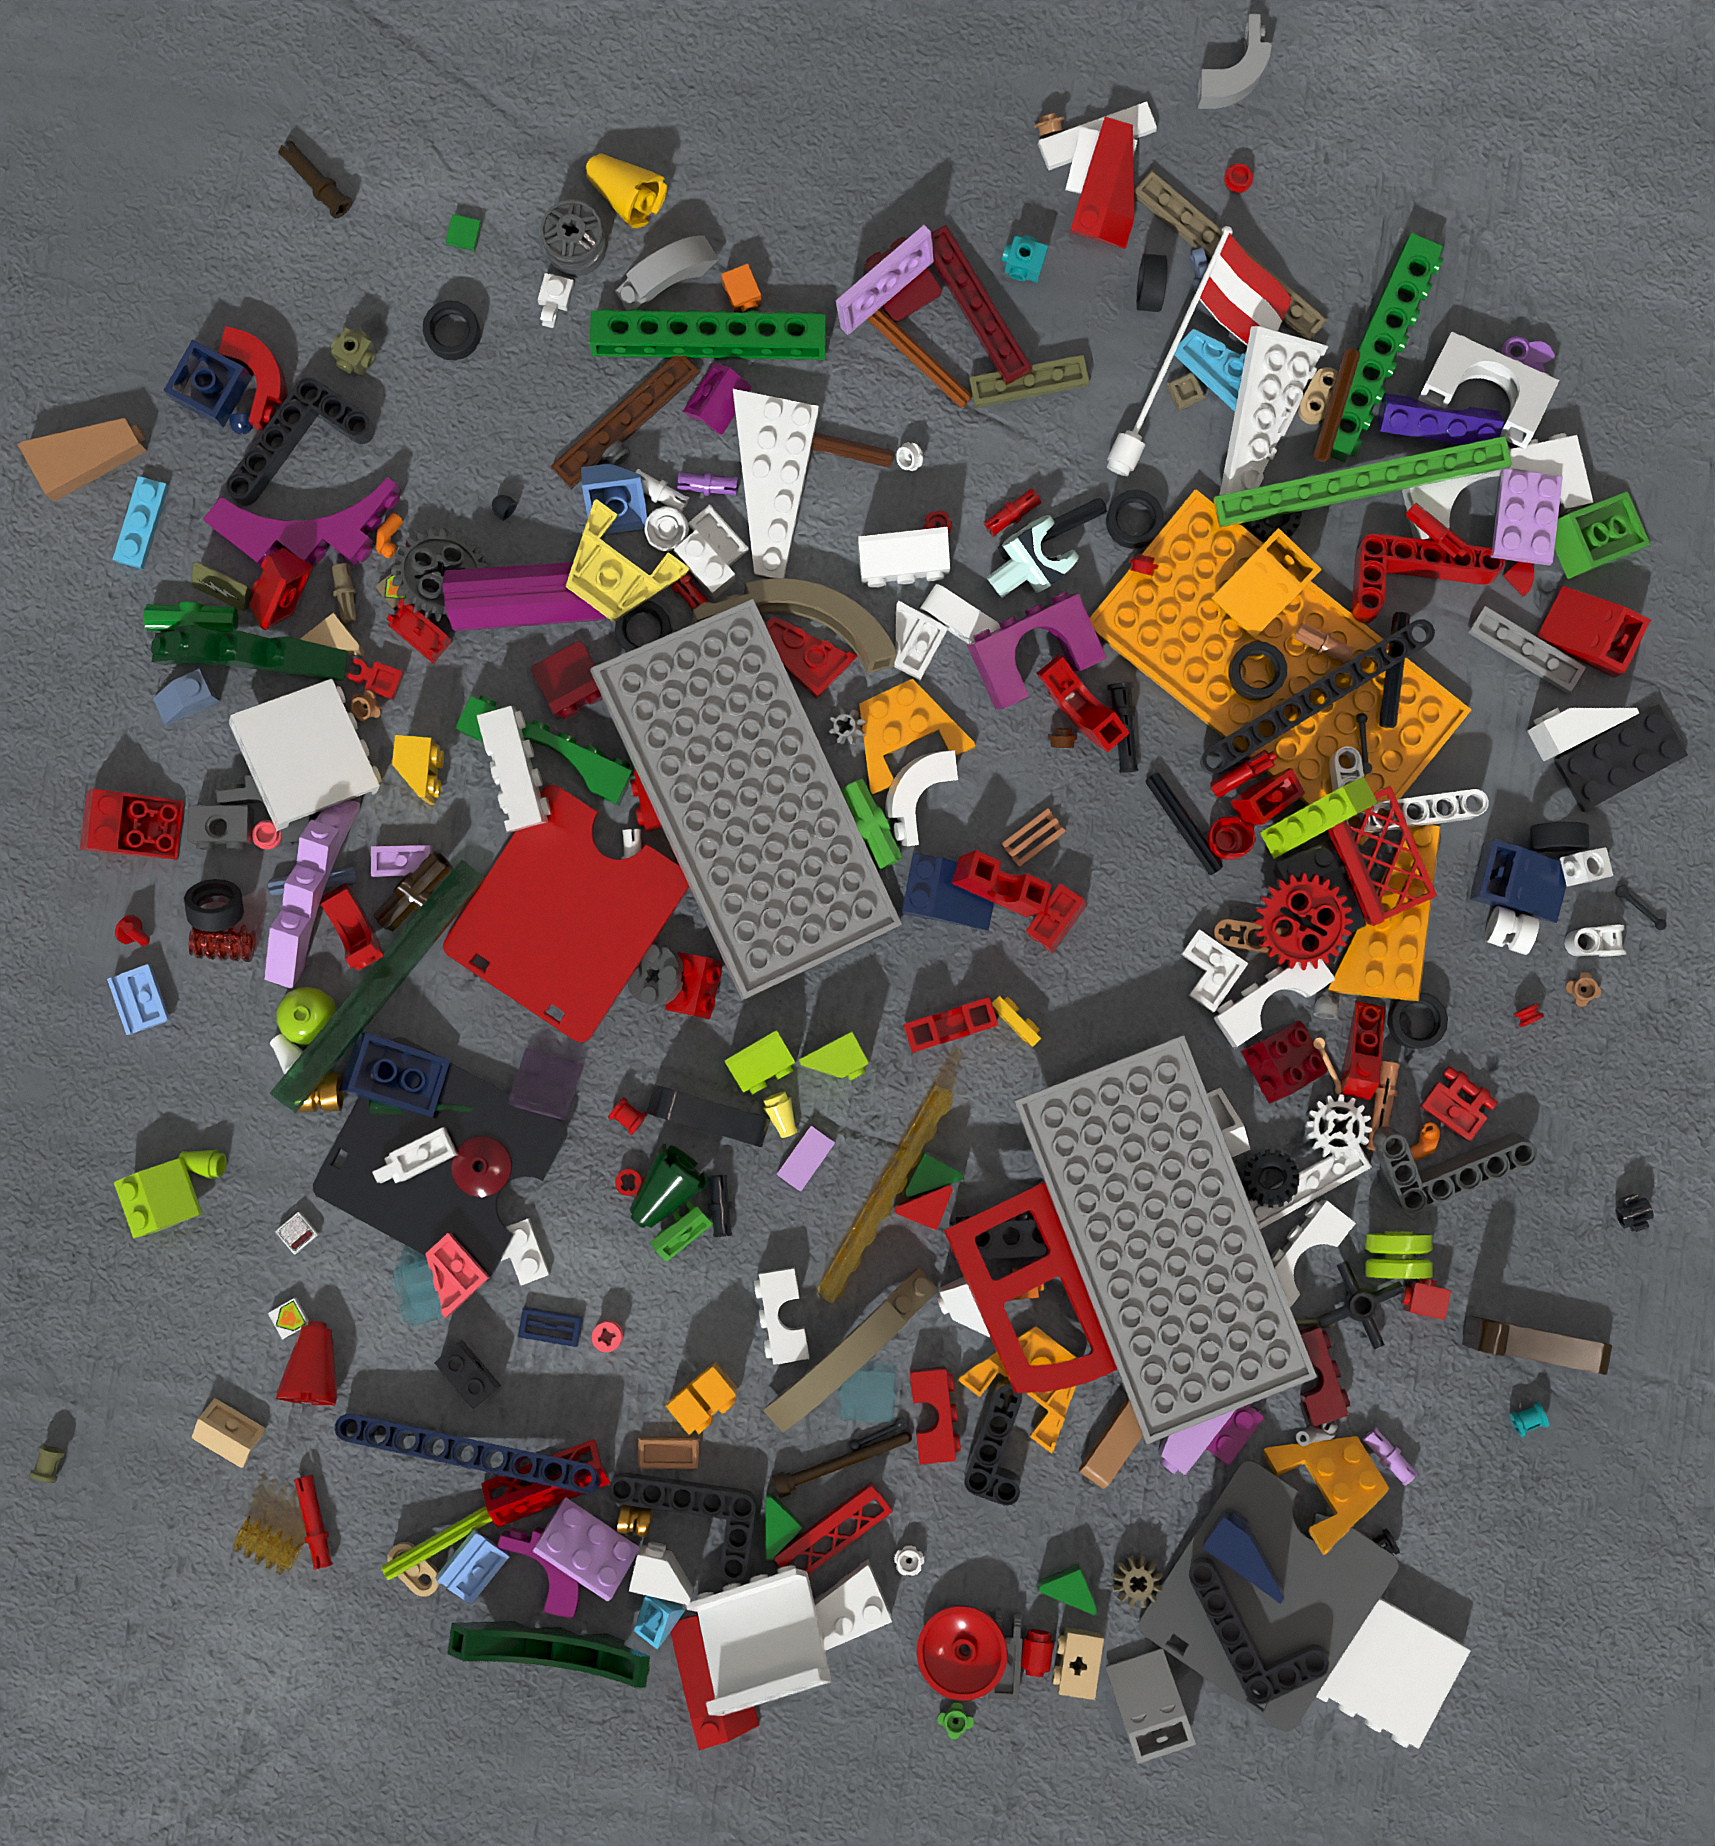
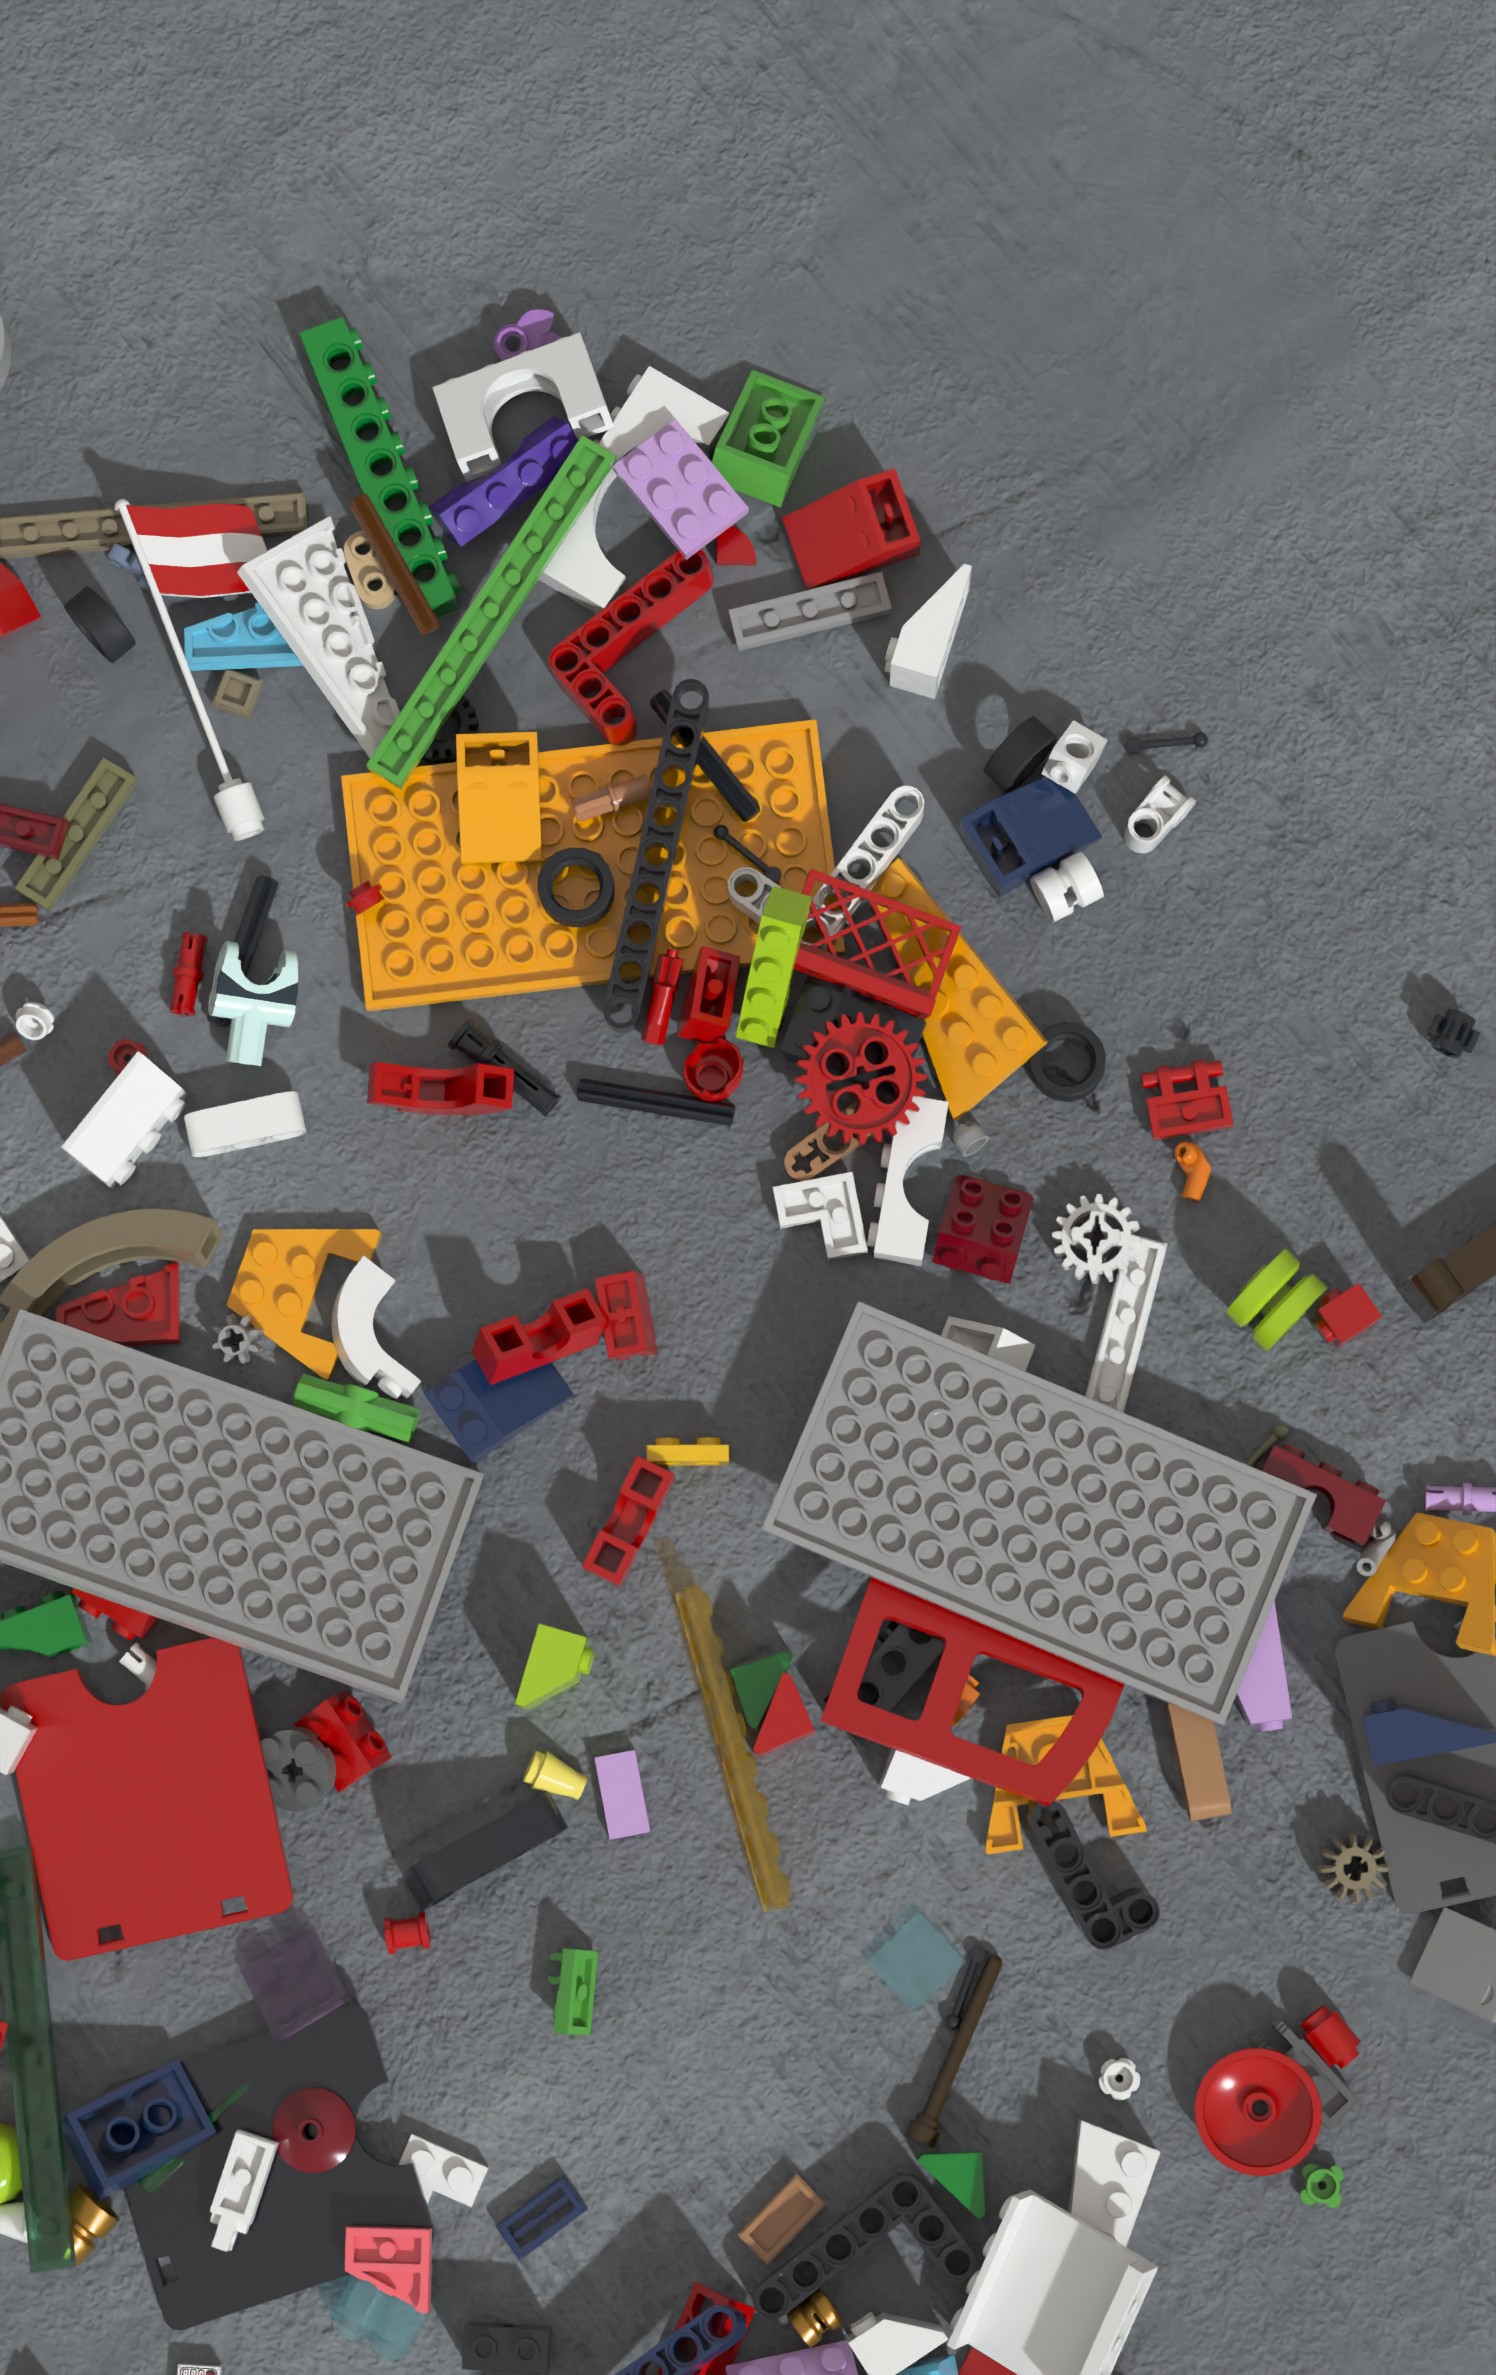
camera: 35 degrees left, 5 degrees down
(610, 1332) = (609, 2161): coral wheel -> none
(619, 1182) = (465, 2006): red bush -> none
(666, 1186) = (514, 1961): dark green cone -> none
(702, 1398) = (758, 2128): light orange piece -> none
(720, 1206) = (586, 1926): black pin -> none
(760, 1062) = (483, 1746): lime slope -> none
(784, 1343) = (722, 1950): white arch -> none
(831, 1521) = (1005, 2118): red fence -> none
(851, 1352) = (854, 1934): dark tan arch -> none
(916, 640) = (219, 1189): white wing -> none
(938, 1442) = (1029, 1931): red arch -> none
(995, 651) = (306, 1121): magenta arch -> none
(1053, 822) = (529, 1229): nougat tile -> none
(1062, 738) = (456, 1139): reddish brown plate -> none
(1069, 1588) = (1297, 1941): green slope -> none
(1083, 1680) = (1402, 2015): tan brick -> none
(1149, 502) = (295, 837): black tyre -> none
(1235, 1433) = (1299, 1630): magenta plate -> none
(1238, 178) = (82, 444): red plate -> none
(1271, 1161) = (1100, 1368): black tyre -> none
(1319, 1044) = (998, 1178): light nougat hinge -> none
(1323, 1226) = (1181, 1345): white arch -> none
(1363, 1051) = (1047, 1143): red slope -> none
(1366, 1316) = (1297, 1368): black bar -> none
(1390, 1071) = (1088, 1137): nougat pin -> none
(1437, 531) = (610, 586): red piece -> none
(1447, 1171) = (1240, 1174): dark grey beam -> none
(1528, 1015) = (1165, 949): red bush -> none
(1592, 989) = (1199, 865): medium nougat plate -> none
(1620, 758) = (1002, 623): black plate -> none

